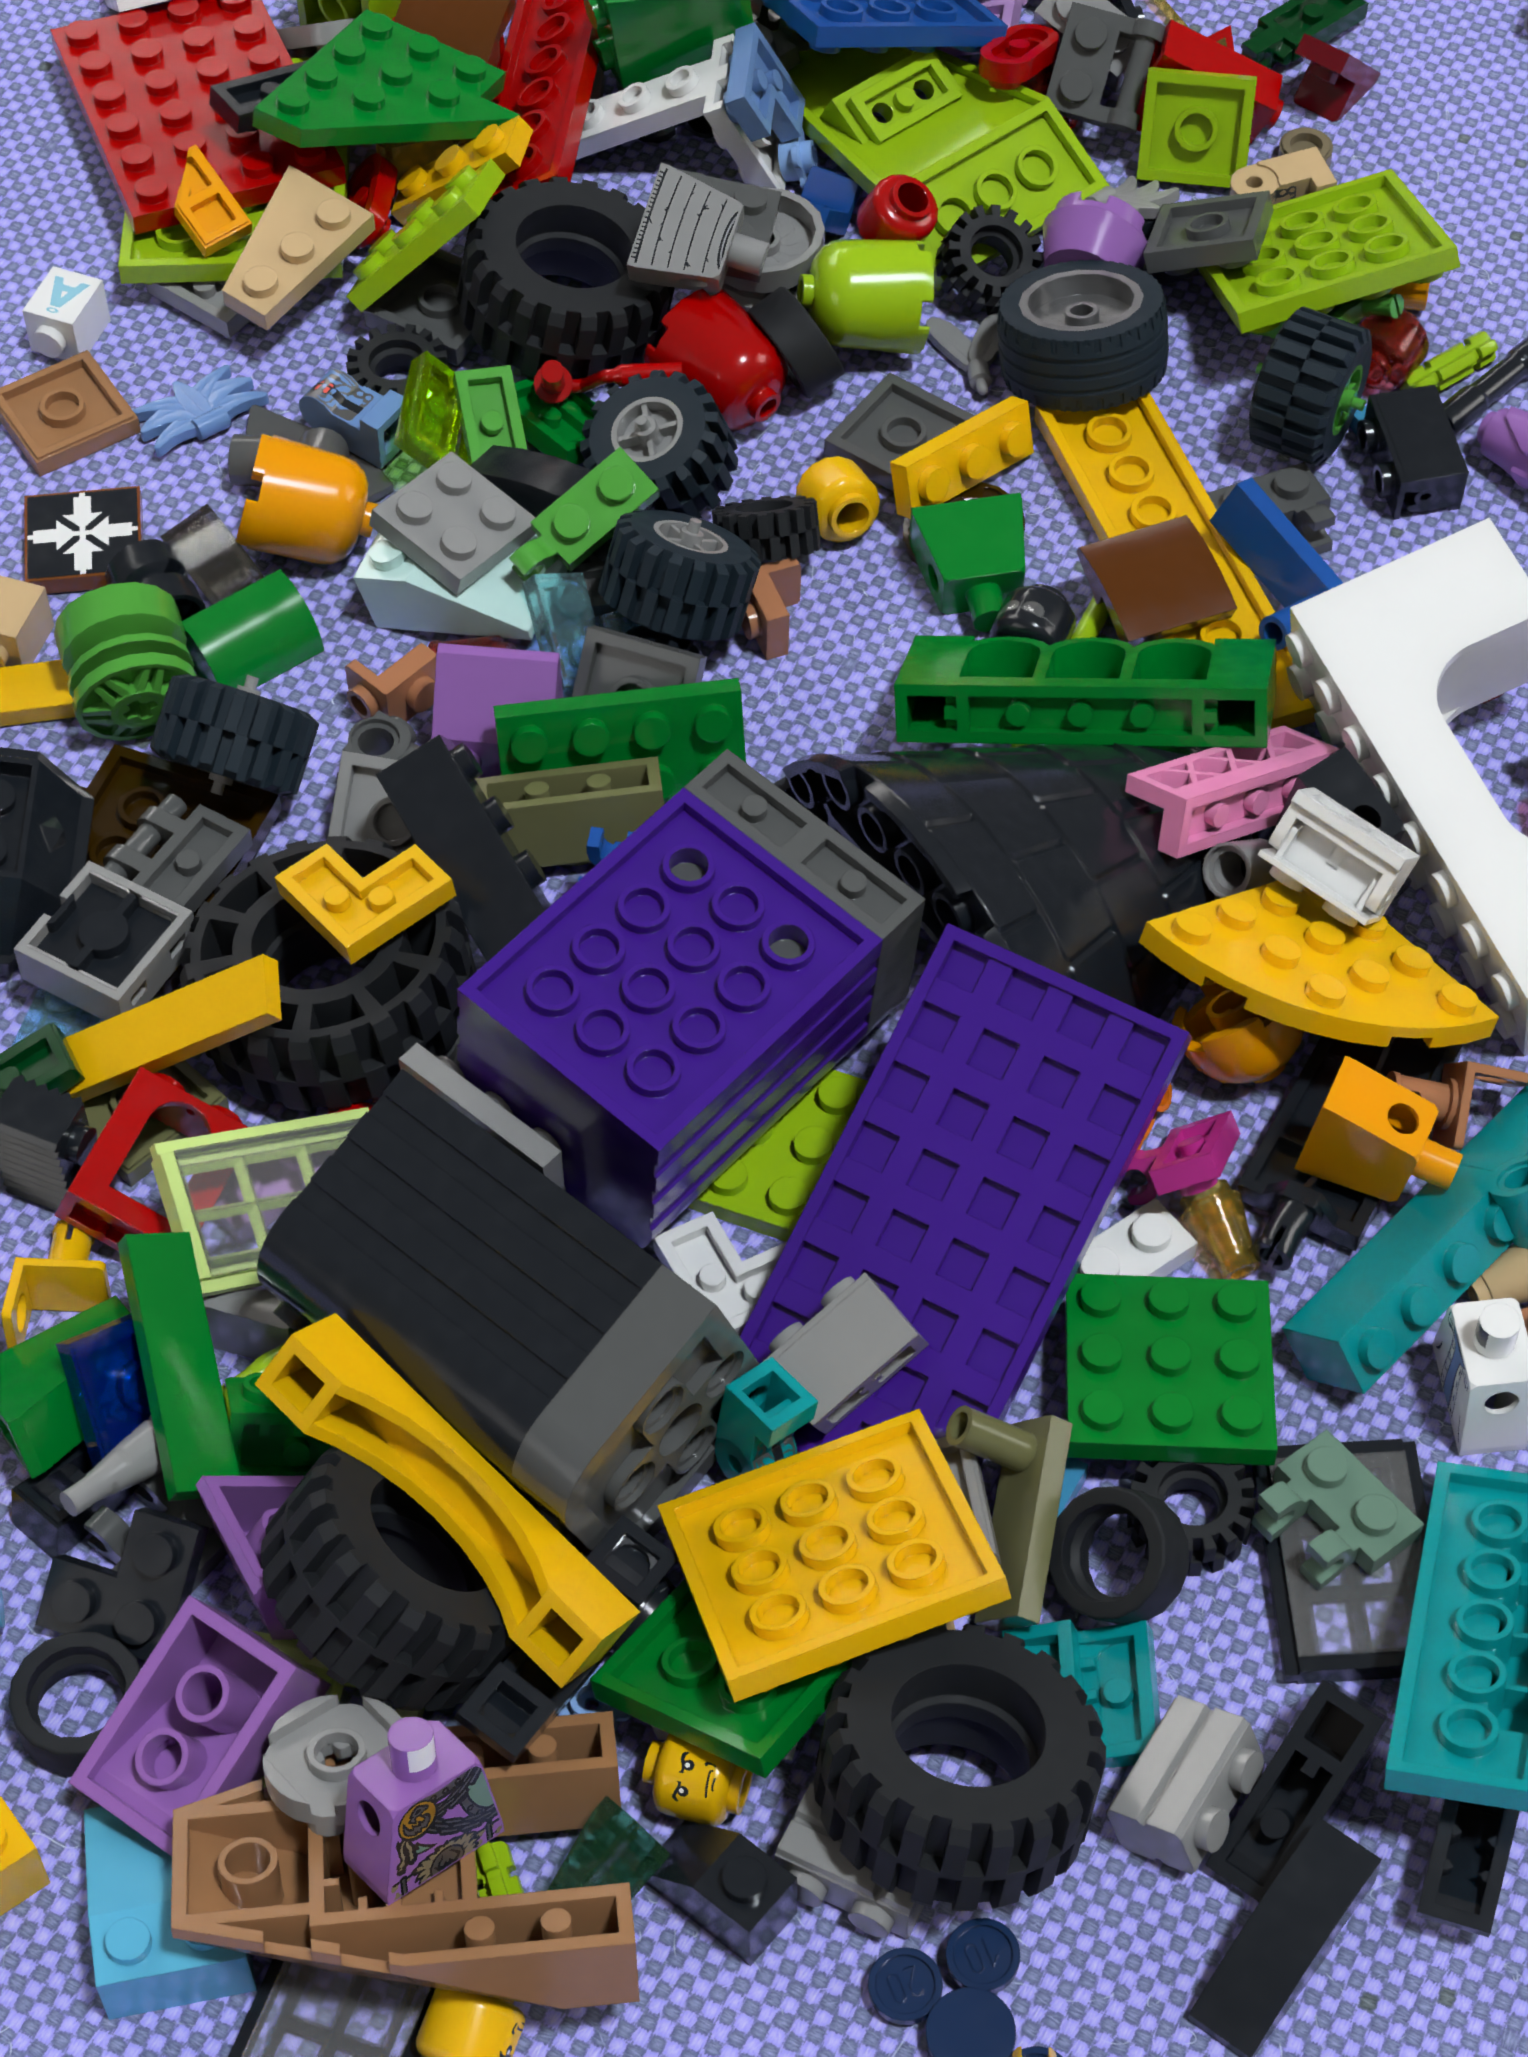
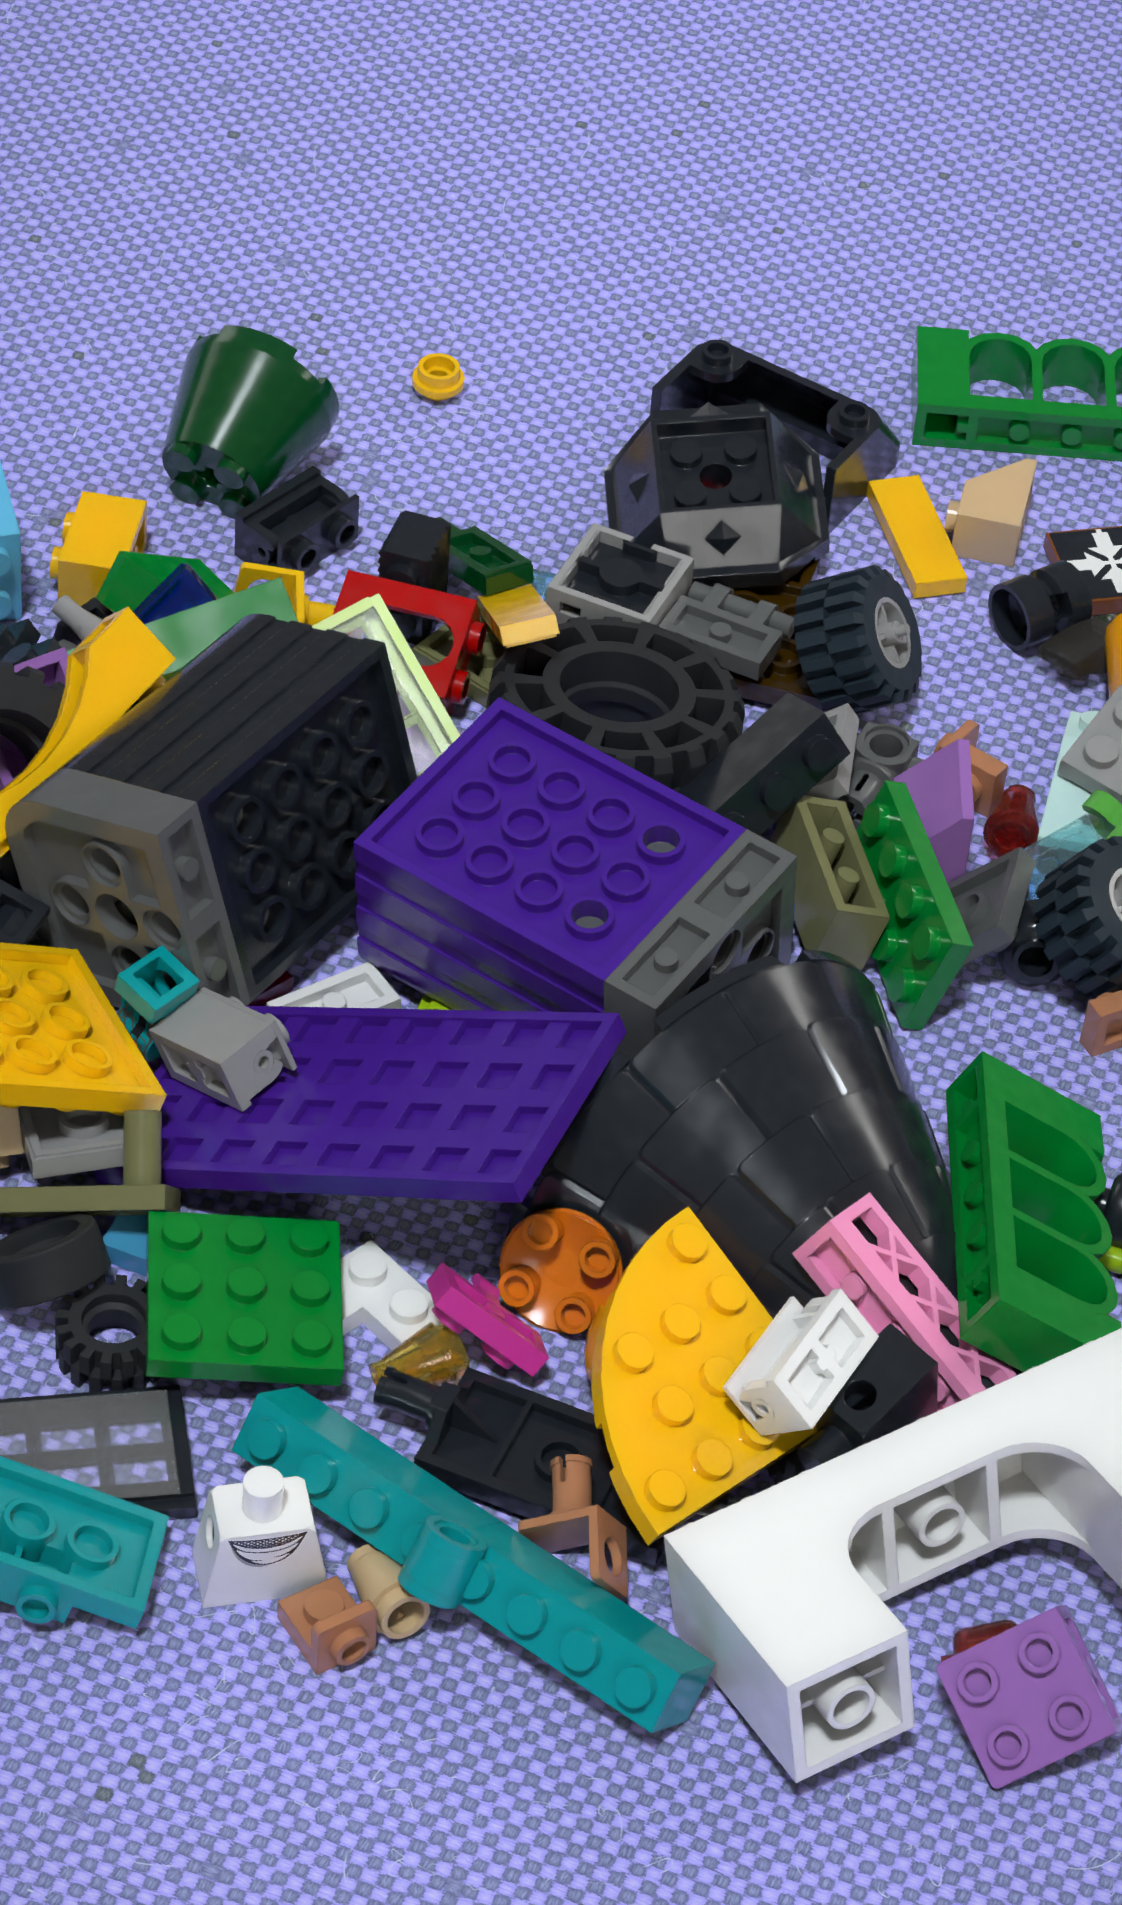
camera: 80 degrees right, 10 degrees down
(120, 657) = (946, 573): bright green wheel -> none
(253, 633) = (1011, 675): green brick -> none
(365, 911) = (645, 691): yellow plate -> none
(1346, 1500) = (111, 1435): sand green plate -> none
(1375, 1136) = (497, 1442): light orange torso -> none

